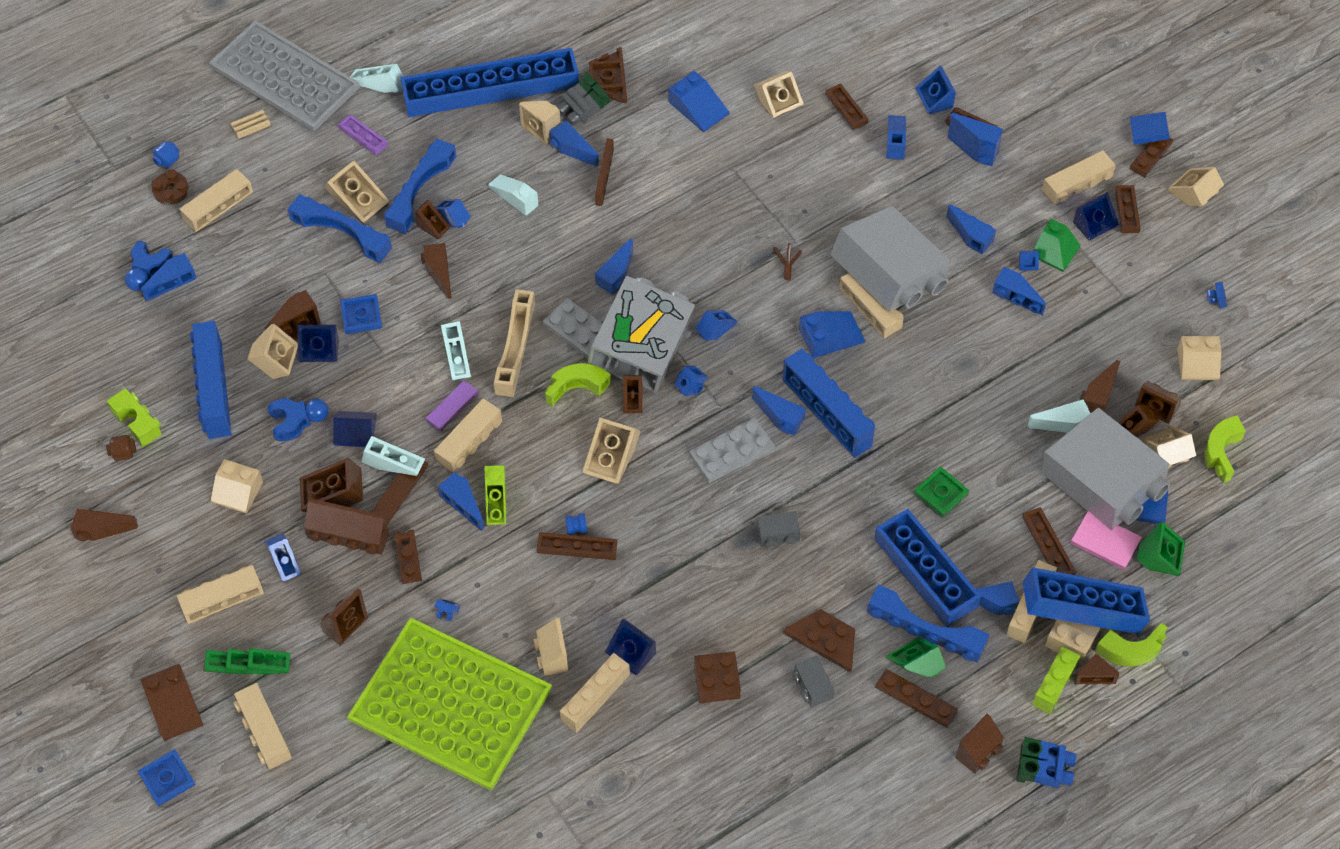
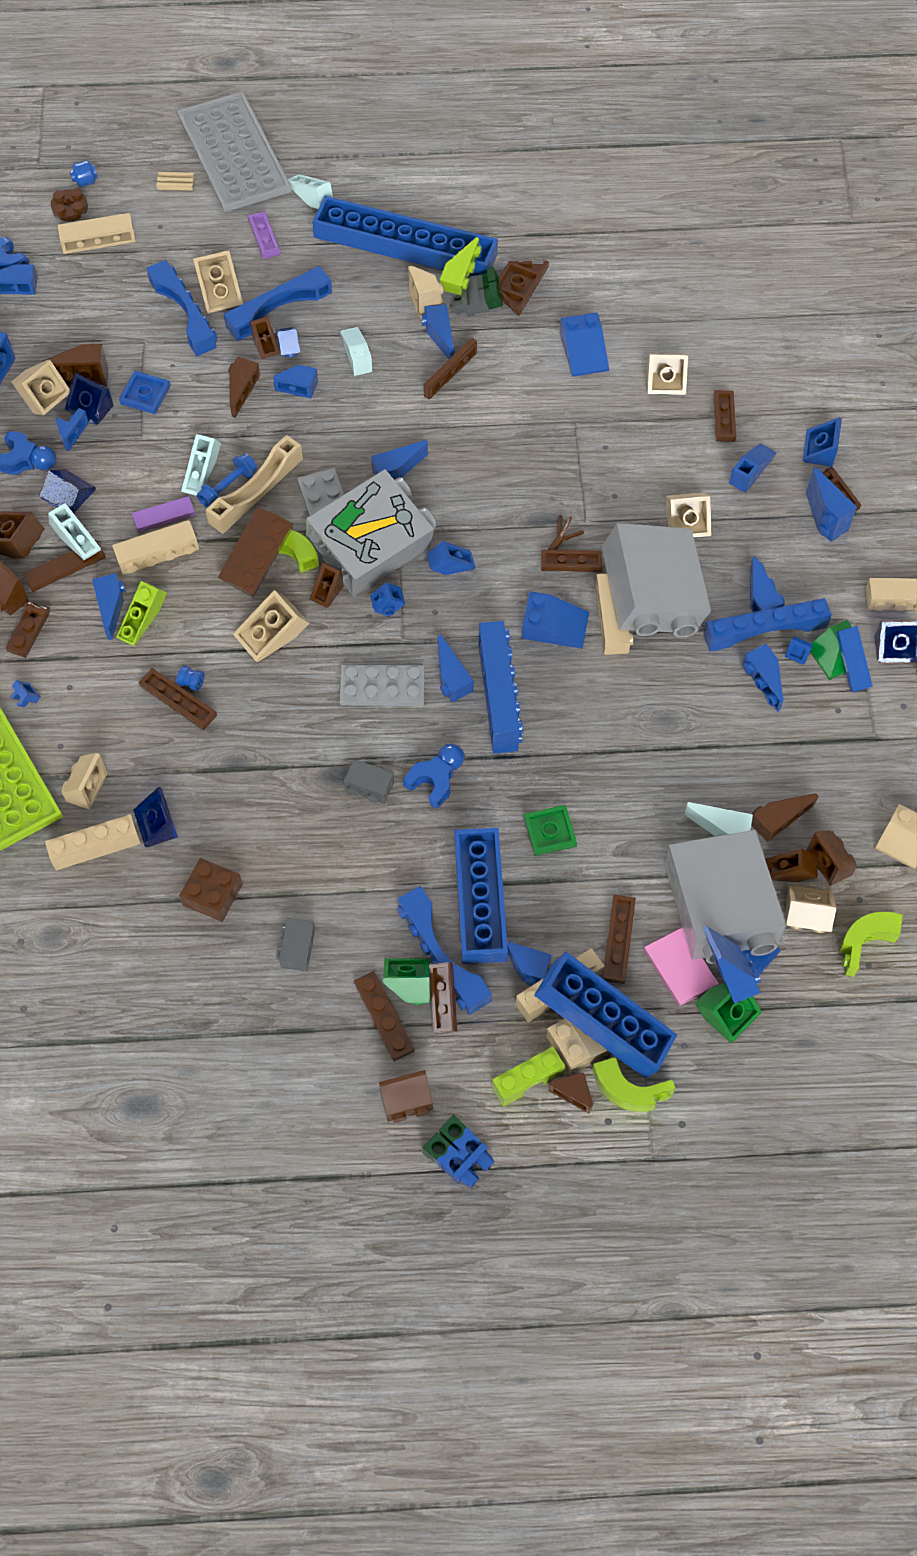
camera: 30 degrees right, 5 degrees up
(320, 377) = (72, 430): none -> blue slope
(485, 242) = (297, 381): none -> blue slope
(494, 333) = (244, 466): none -> blue piece
(560, 88) = (456, 271): none -> lime slope
(560, 395) = (255, 551): none -> reddish brown slope
(810, 278) = (571, 560): none -> reddish brown plate
(826, 493) = (436, 772): none -> blue piece
(826, 637) = (341, 909): reddish brown wing -> none
(874, 195) = (690, 512): none -> tan slope
(955, 658) = (443, 997): none -> tile
(1012, 234) = (801, 616): none -> blue arch
(1075, 245) = (854, 658): none -> blue tile
(1154, 515) = (733, 966): none -> blue slope

